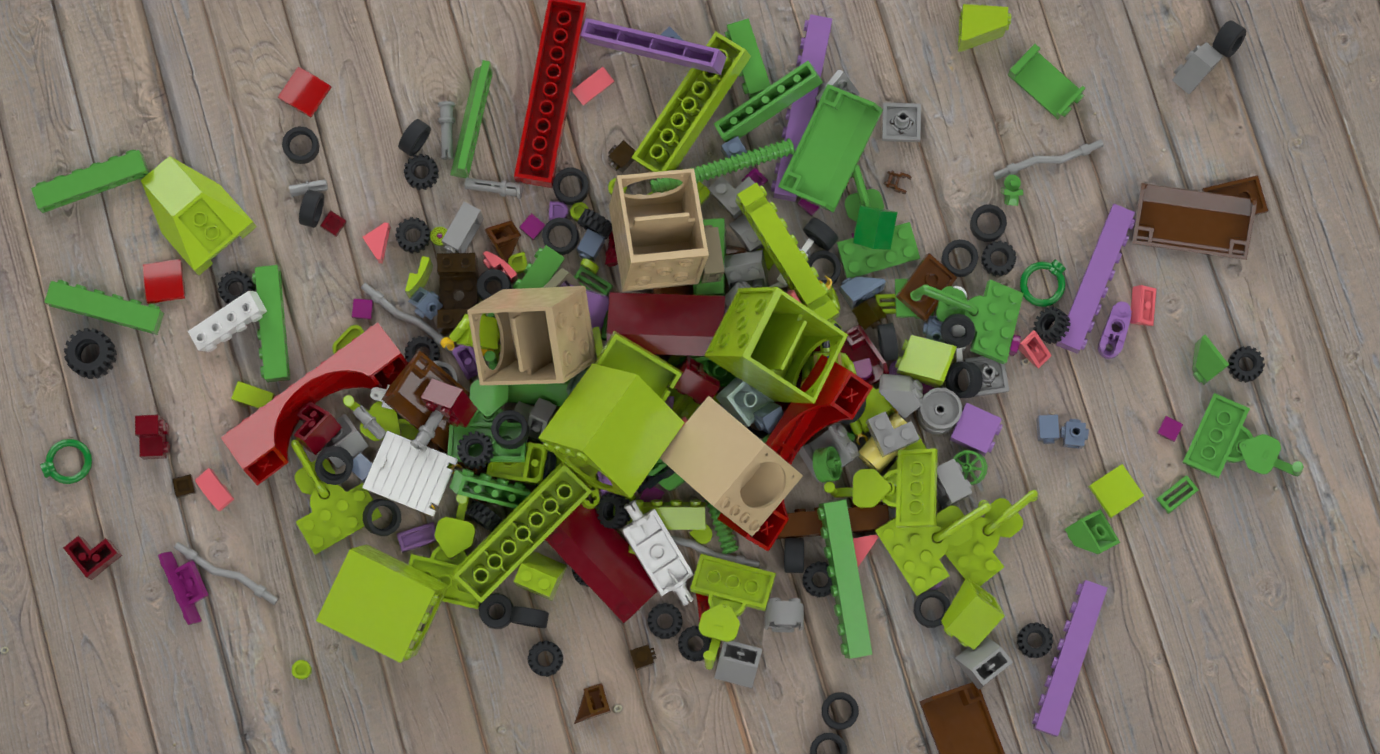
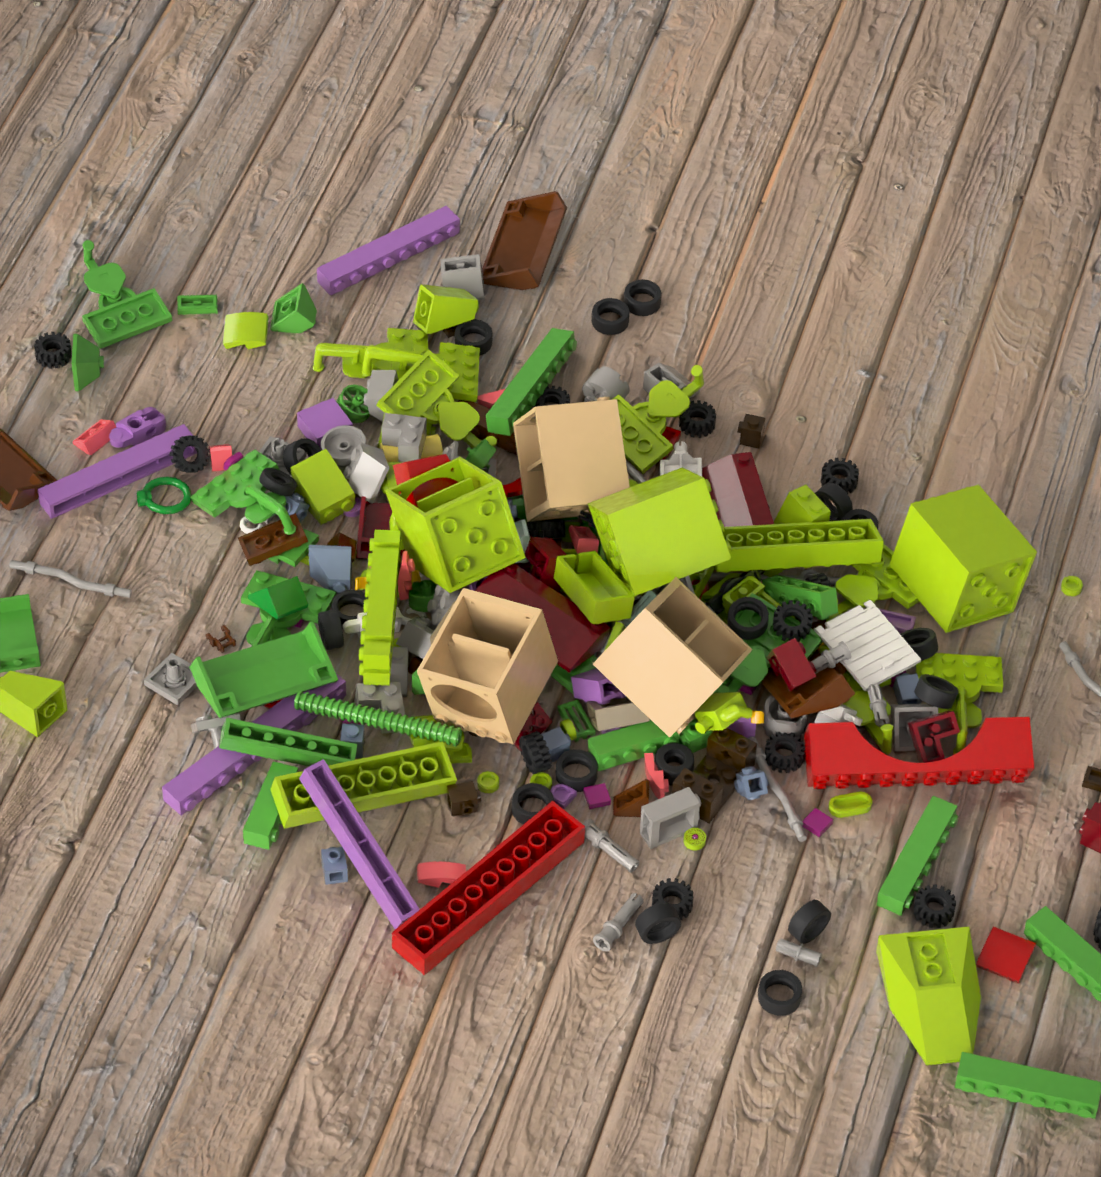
camera: 150 degrees left, 30 degrees down
(214, 489) = (1067, 755): coral slope -> none
(227, 321) = (963, 871): white brick -> none
(251, 395) = (977, 812): lime tile -> none
(304, 92) = (741, 1040): red slope -> none
(333, 223) = (790, 907): dark red tile -> none
(377, 241) = (759, 865): coral slope -> none
(413, 224) = (721, 841): black tyre -> none
(420, 279) = (743, 801): lime slope -> none
(472, 120) = (586, 908): bright green arch -> none
(518, 262) = (633, 775): lime tile -> none
(593, 704) = (822, 423): reddish brown slope -> none
(665, 609) = (711, 438): black tyre -> none
(863, 368) = (381, 517): magenta tile -> none
(887, 341) = (344, 518): black tyre -> none
(960, 244) = (224, 539): black tyre -> none
(986, 209) = (167, 549): black tyre -> none
(1002, 247) = (187, 541): black tyre -> none
(1012, 190) = (129, 563): bright green hips -> none
(1046, 640) = (406, 267): black tyre -> none
(1047, 428) = (262, 396): sand blue brick -> none
(1071, 440) = (245, 377): sand blue brick -> none
(1169, 428) = (159, 346): magenta tile -> none

